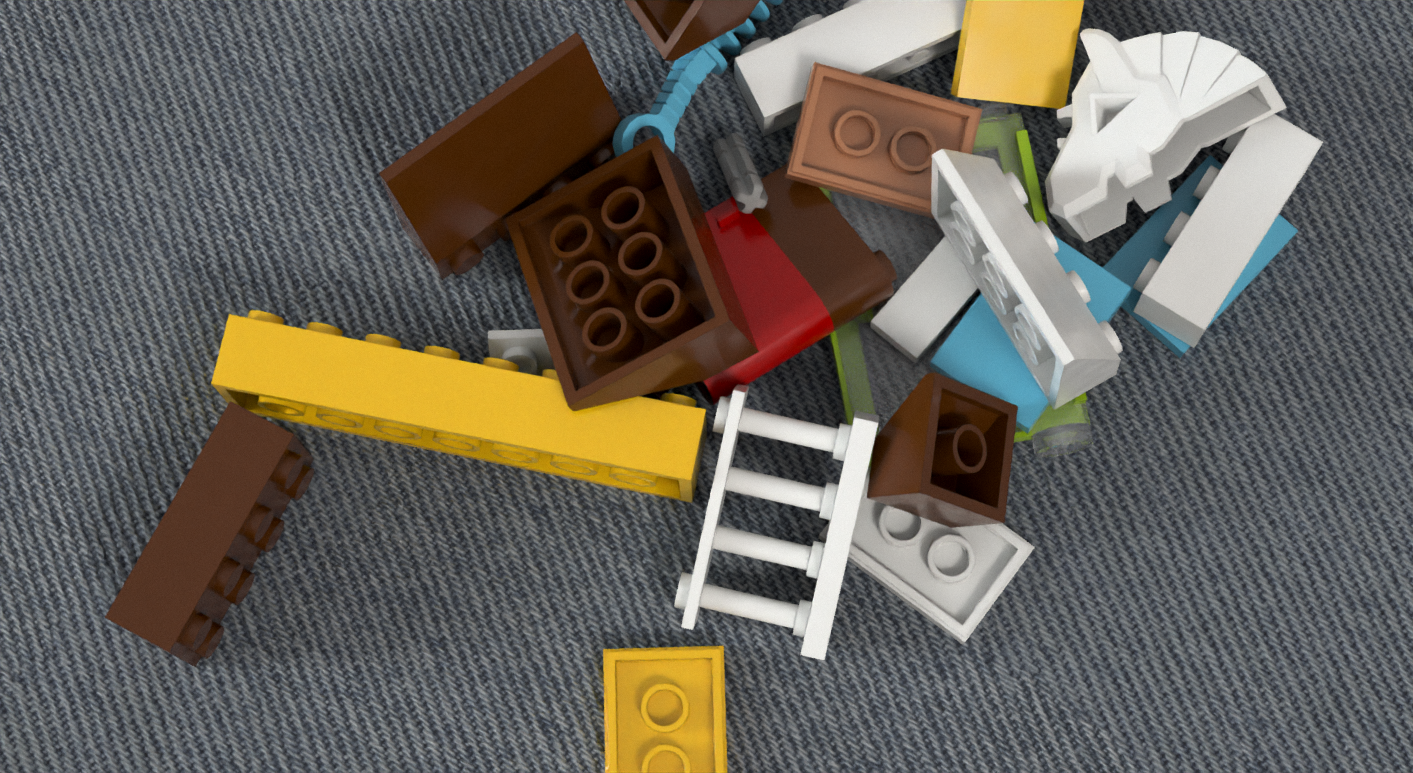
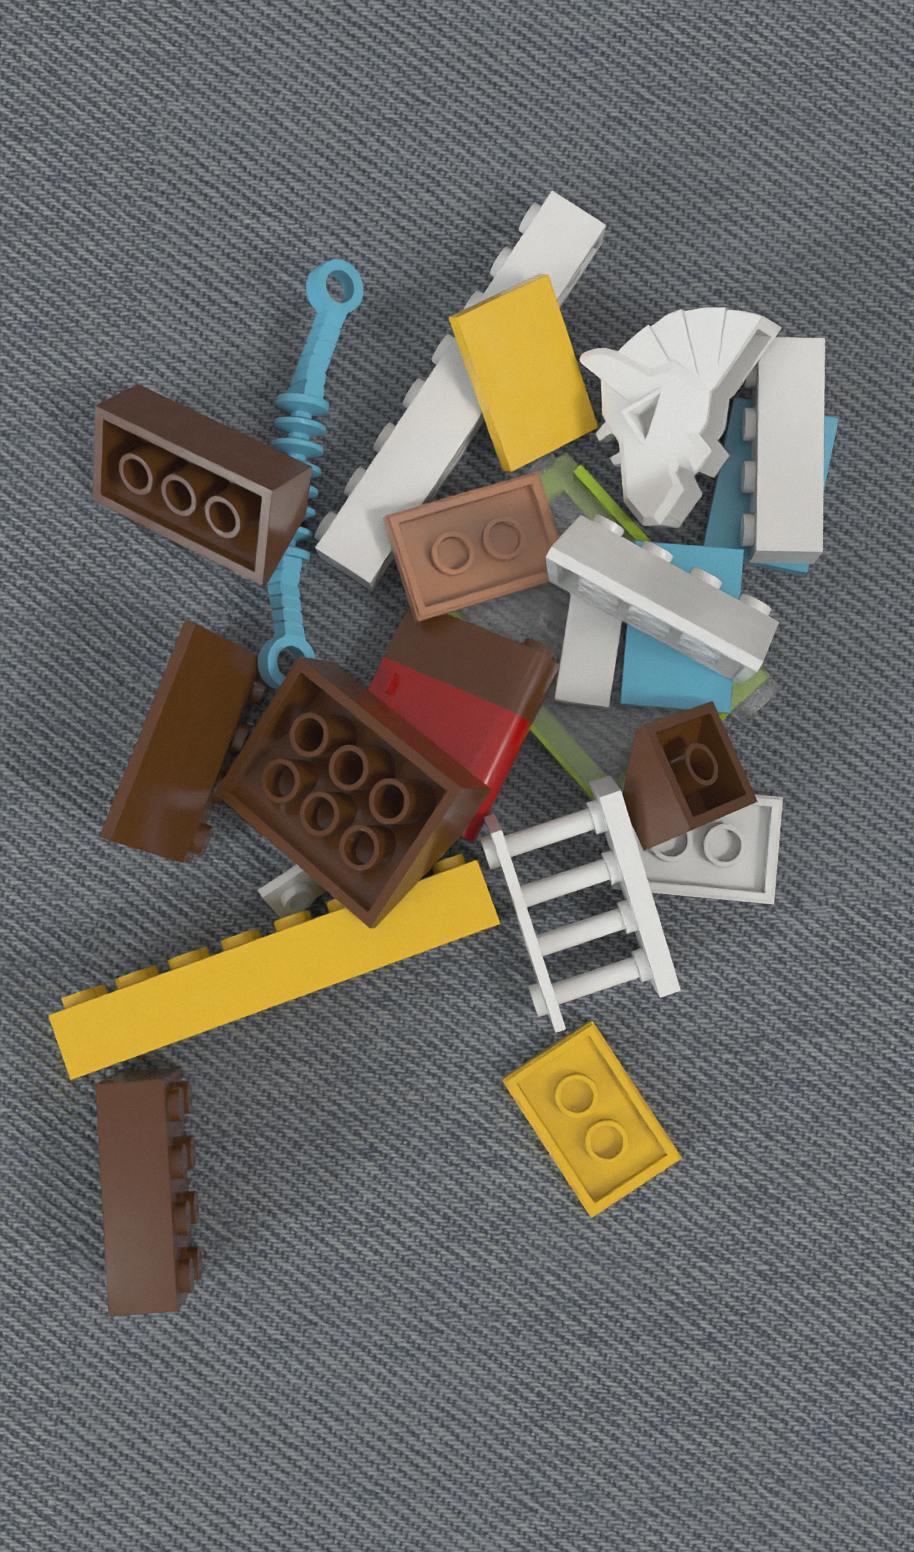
camera: 35 degrees left, 10 degrees up
(740, 173) = (377, 639): light grey axle -> none

